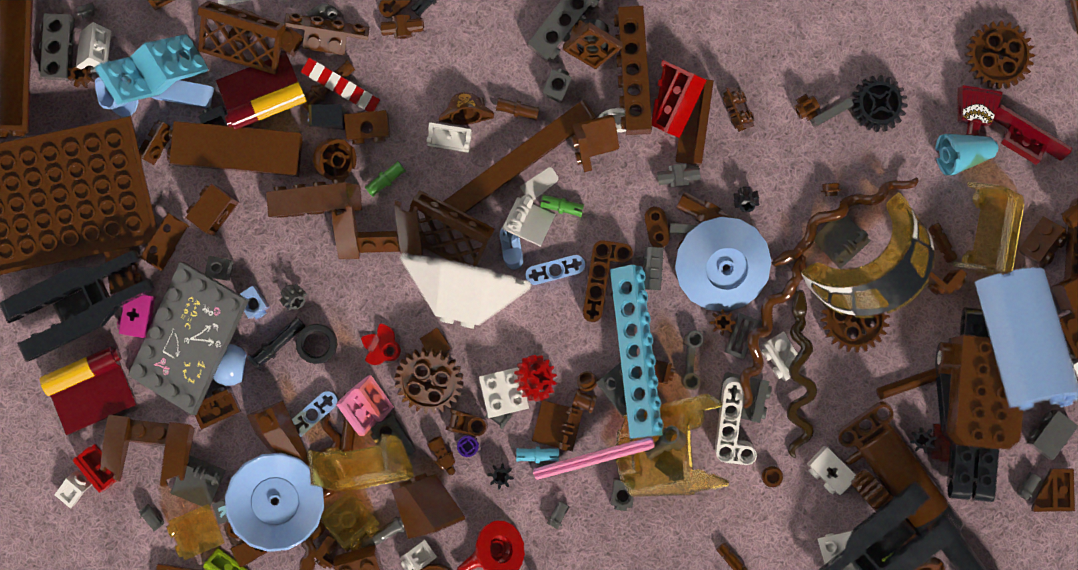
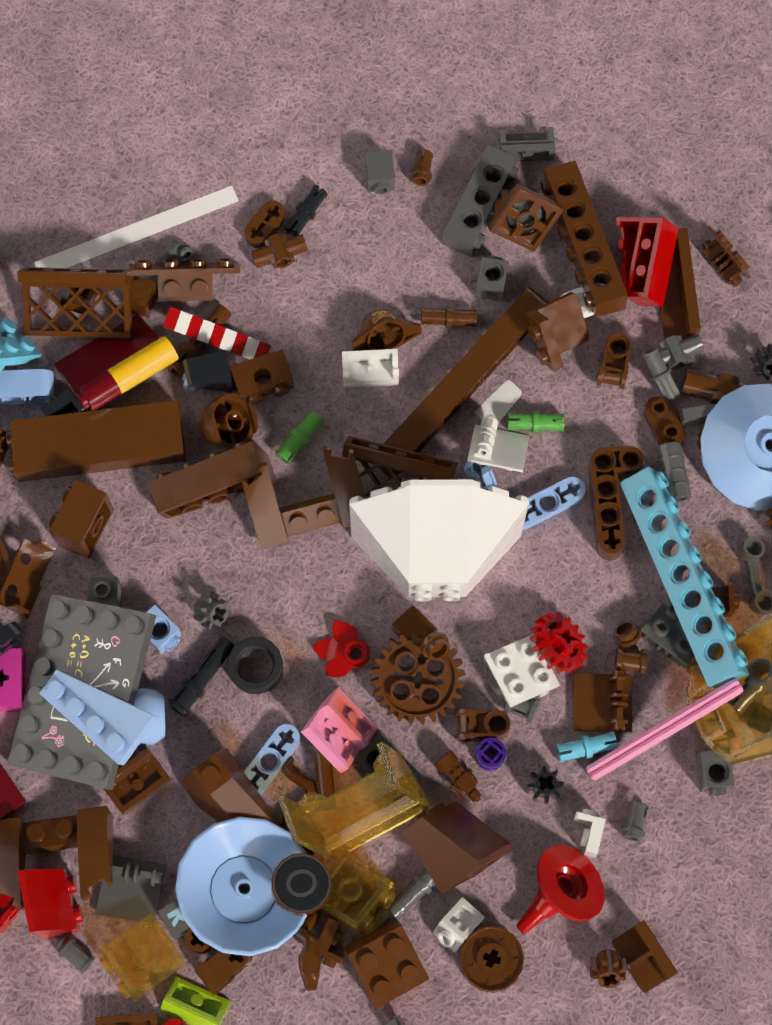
camera: 10 degrees left, 15 degrees down
(138, 483) = (50, 902): none -> red slope
(199, 368) = (104, 719): none -> light blue wing
(313, 510) = (301, 884): none -> black tile
(443, 366) = (435, 646): none -> reddish brown plate
(524, 519) = (591, 837): none -> white bracket
(631, 175) = (614, 366): none -> reddish brown piece
(663, 191) = (661, 373): none -> dark grey axle

